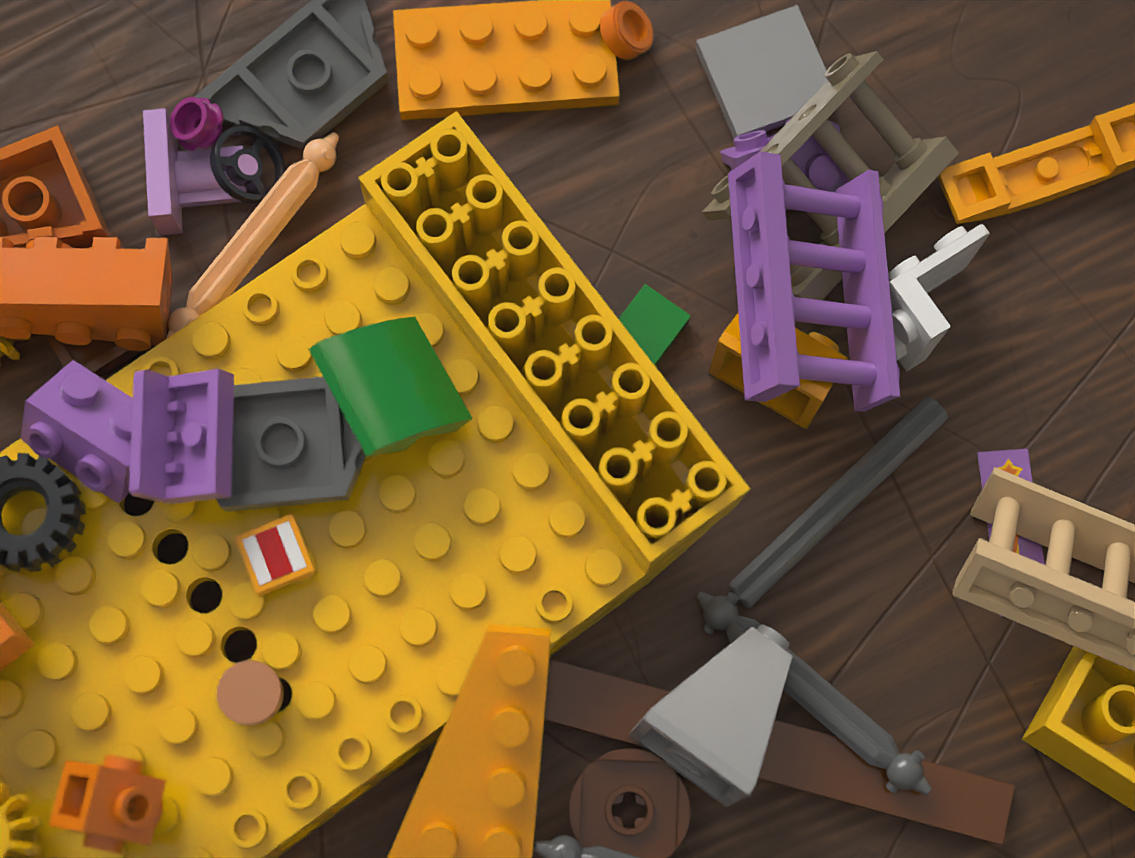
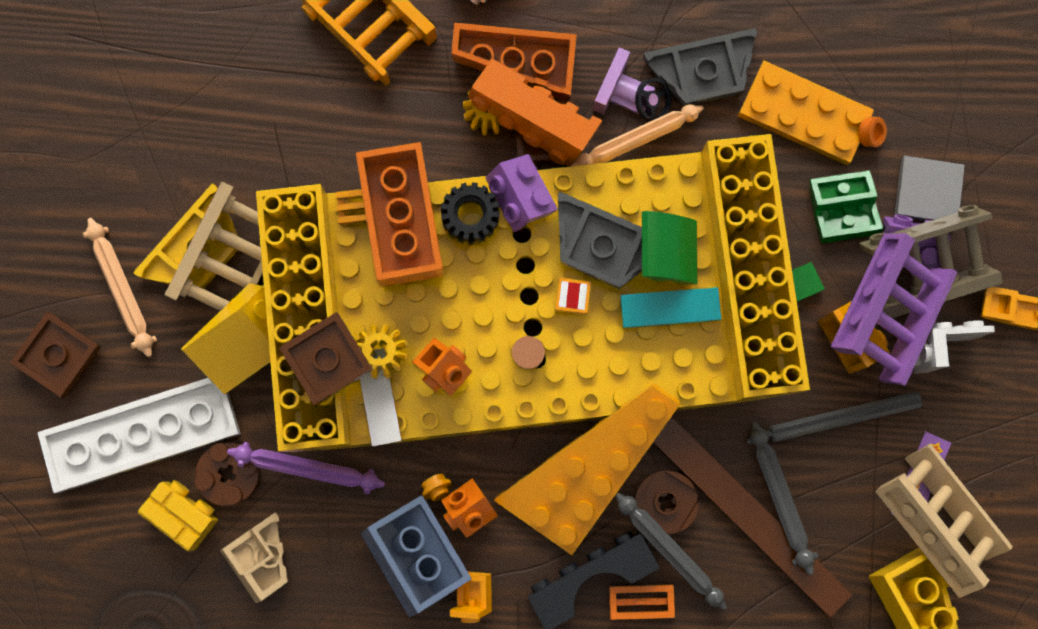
camera: 30 degrees right, 5 degrees up
(182, 436) = (562, 219): medium lavender bracket -> none
(196, 123) = (638, 61): magenta plate -> none
(449, 483) = (670, 307): none -> teal tile
(649, 169) = (845, 206): none -> green slope
(721, 716) = (734, 486): light grey slope -> none

